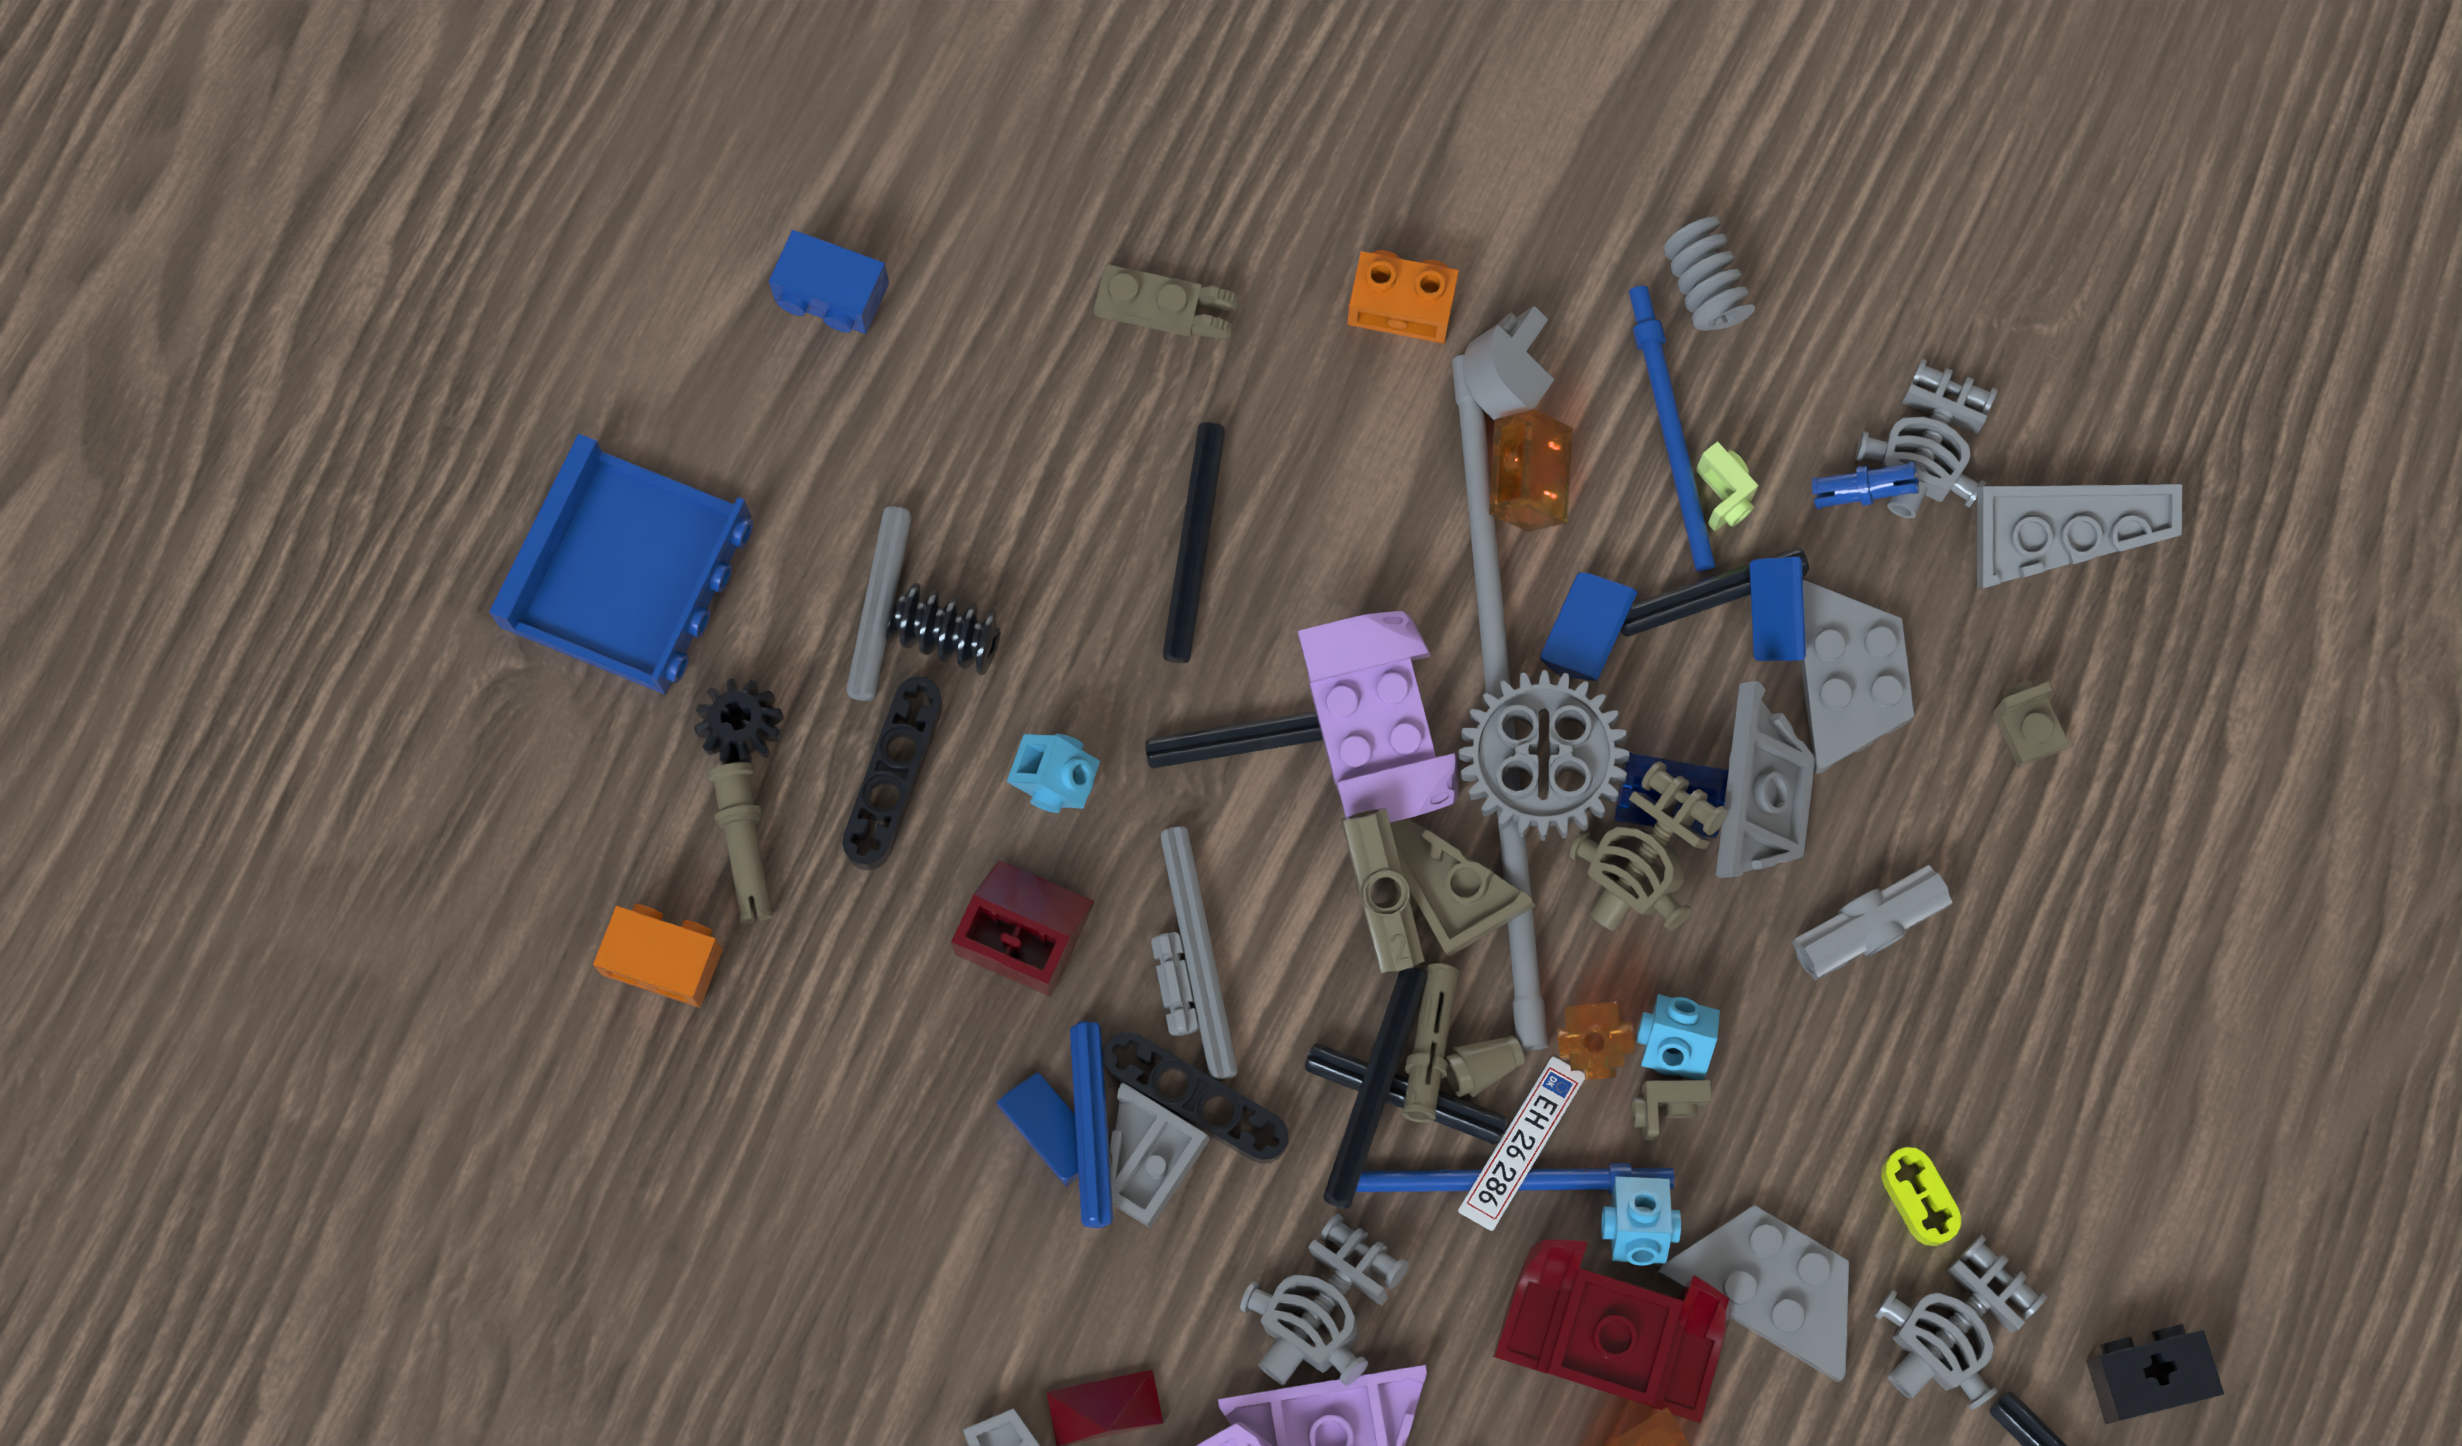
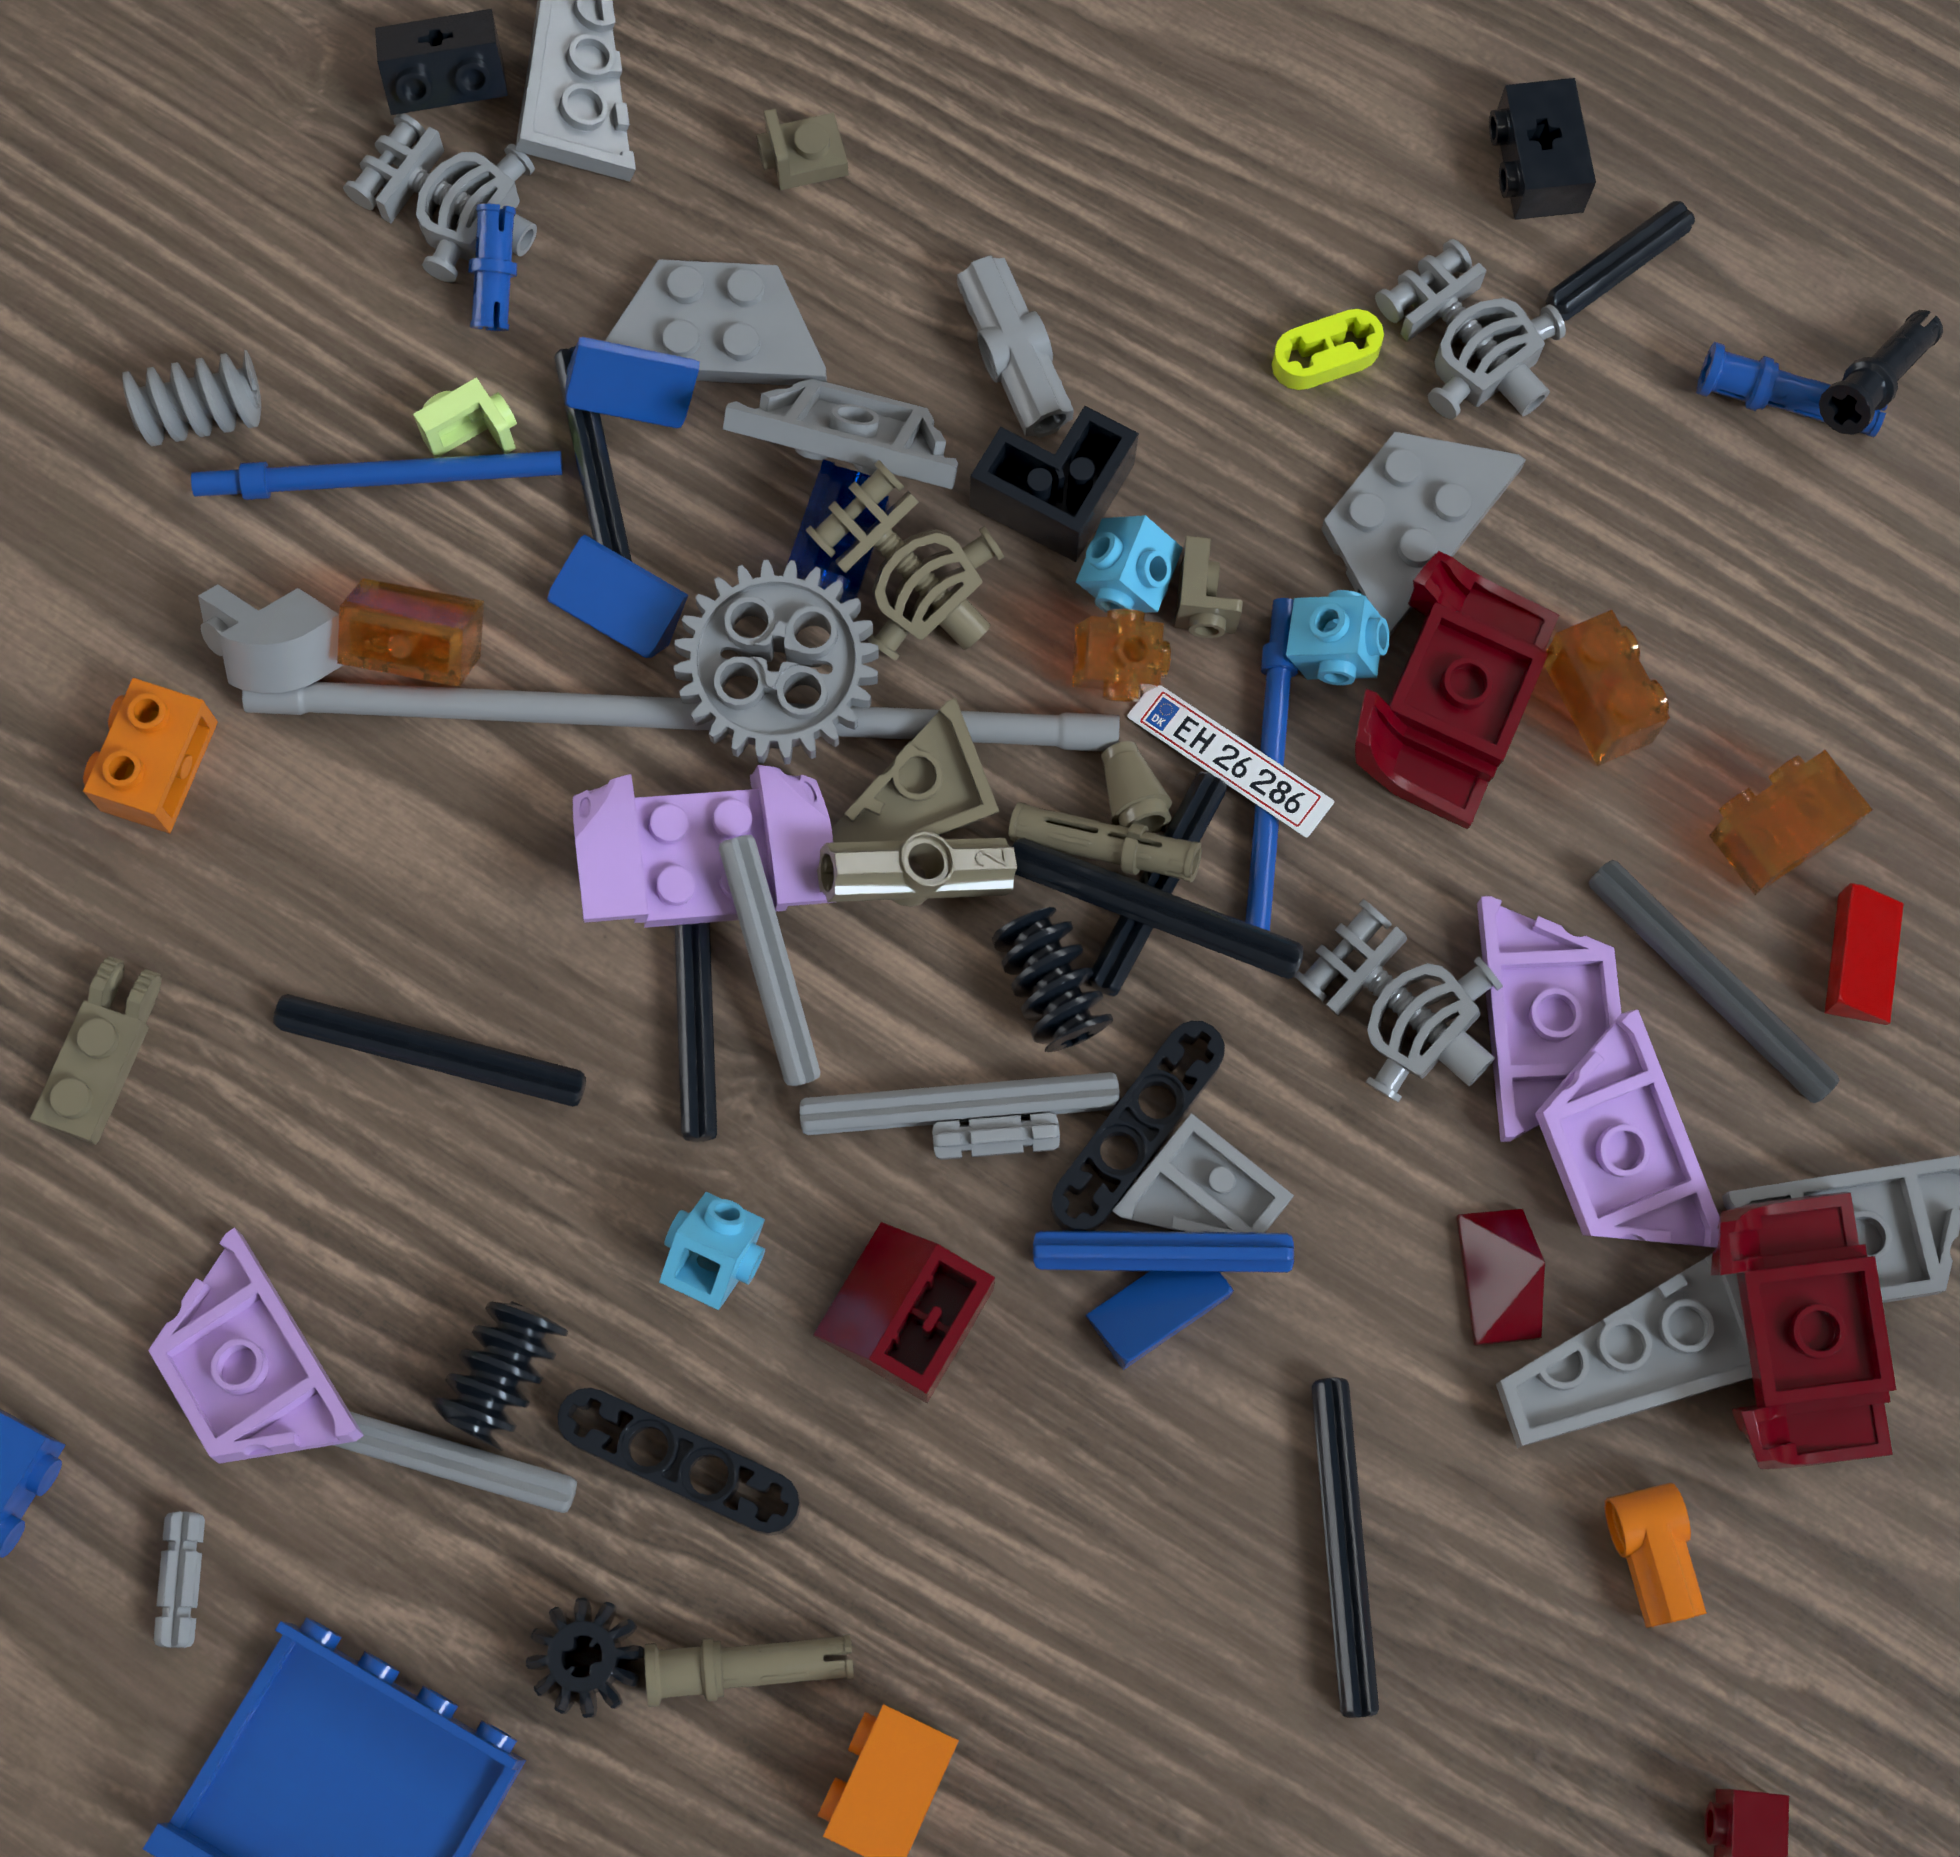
camera: 85 degrees left, 0 degrees up
(774, 429) = (179, 1580): none -> light grey axle
(872, 1294) = (1345, 1548): none -> black axle
(934, 447) = (247, 1366): none -> lavender wing
(1292, 783) = (769, 960): none -> light grey axle
(1305, 1011) = (1049, 980): none -> black piece
(1735, 976) = (1060, 494): none -> black brick
(2048, 415) = (440, 61): none -> black brick

